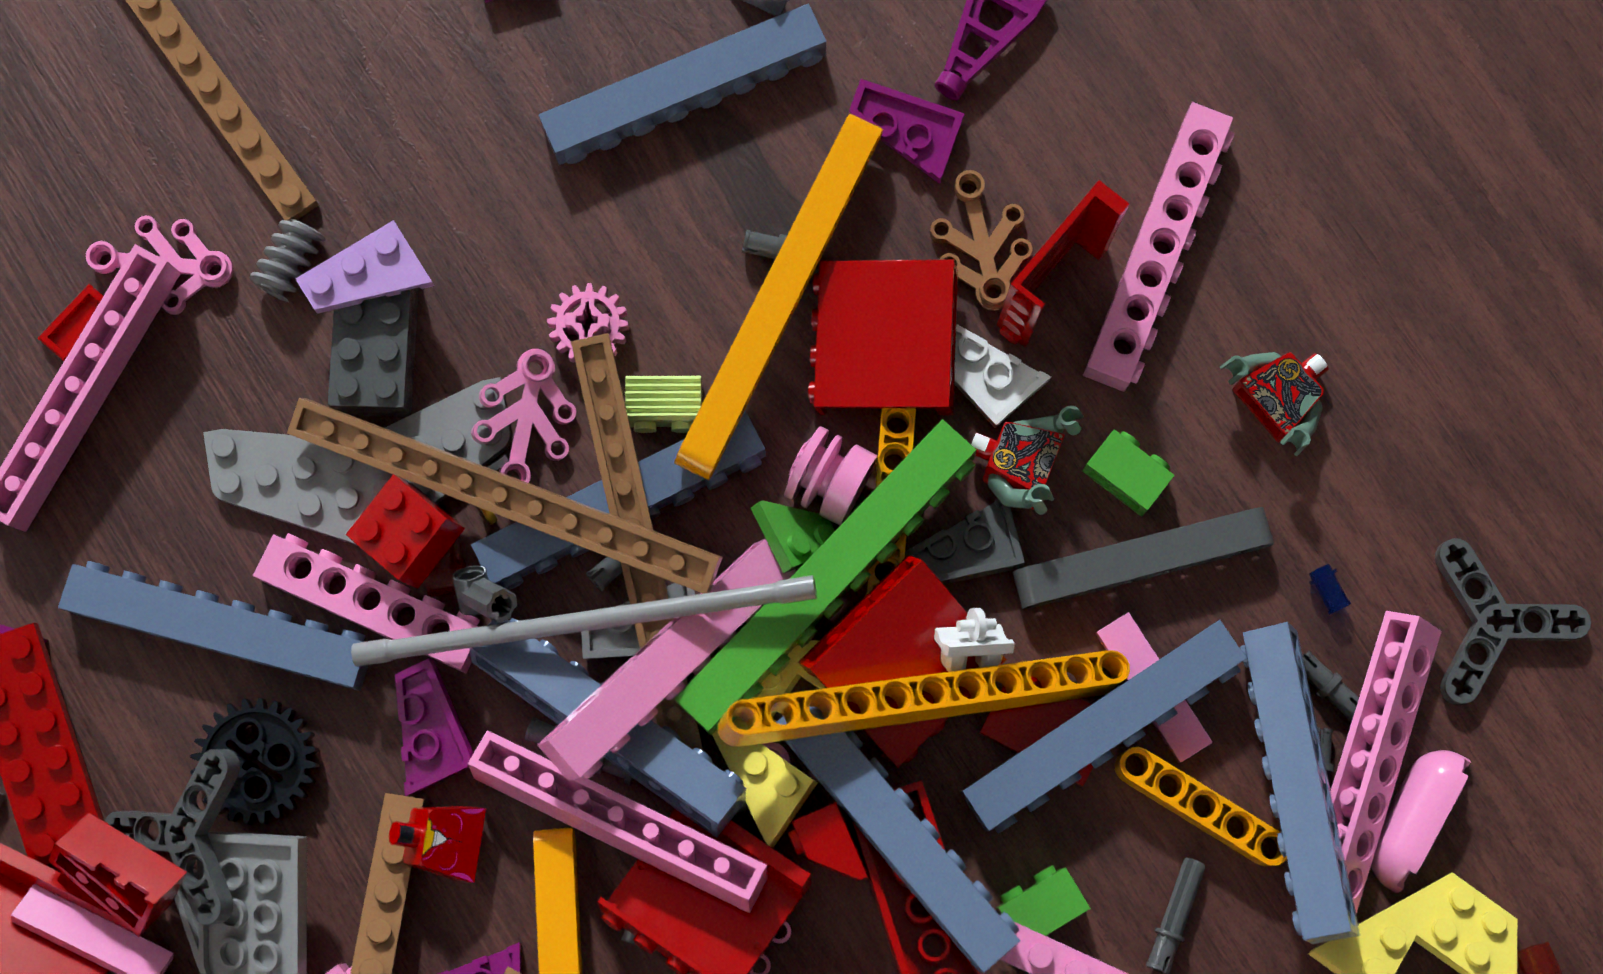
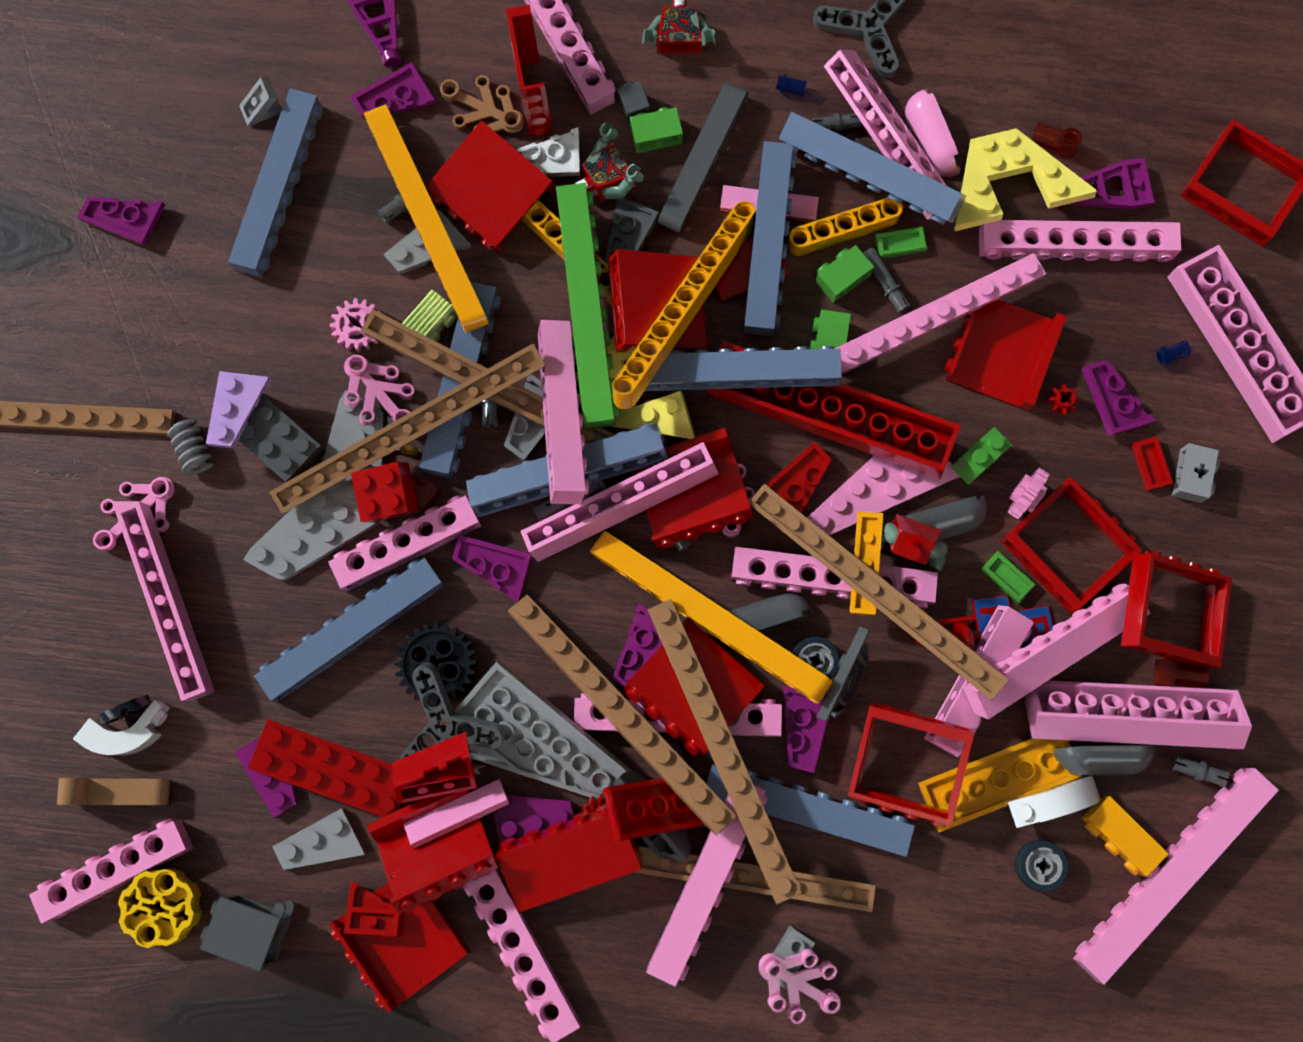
camera: 45 degrees left, 0 degrees up
(68, 326) = (127, 584): red tile -> none
(442, 840) = (557, 598): red torso -> none
(481, 596) = (448, 481): dark grey piece -> none
(727, 306) = (411, 252): none -> light grey wing
(780, 592) = (438, 547): light grey piece -> none
(791, 532) = (549, 307): bright green wing -> none
(827, 842) = (717, 410): red slope -> none
(830, 475) = (536, 266): bright pink wheel -> none
(973, 637) = (674, 257): white hips -> none
(1140, 855) = (844, 273): none -> bright green brick
(1142, 413) = (632, 99): none -> dark grey brick
(1242, 893) = (901, 242): none -> bright green tile

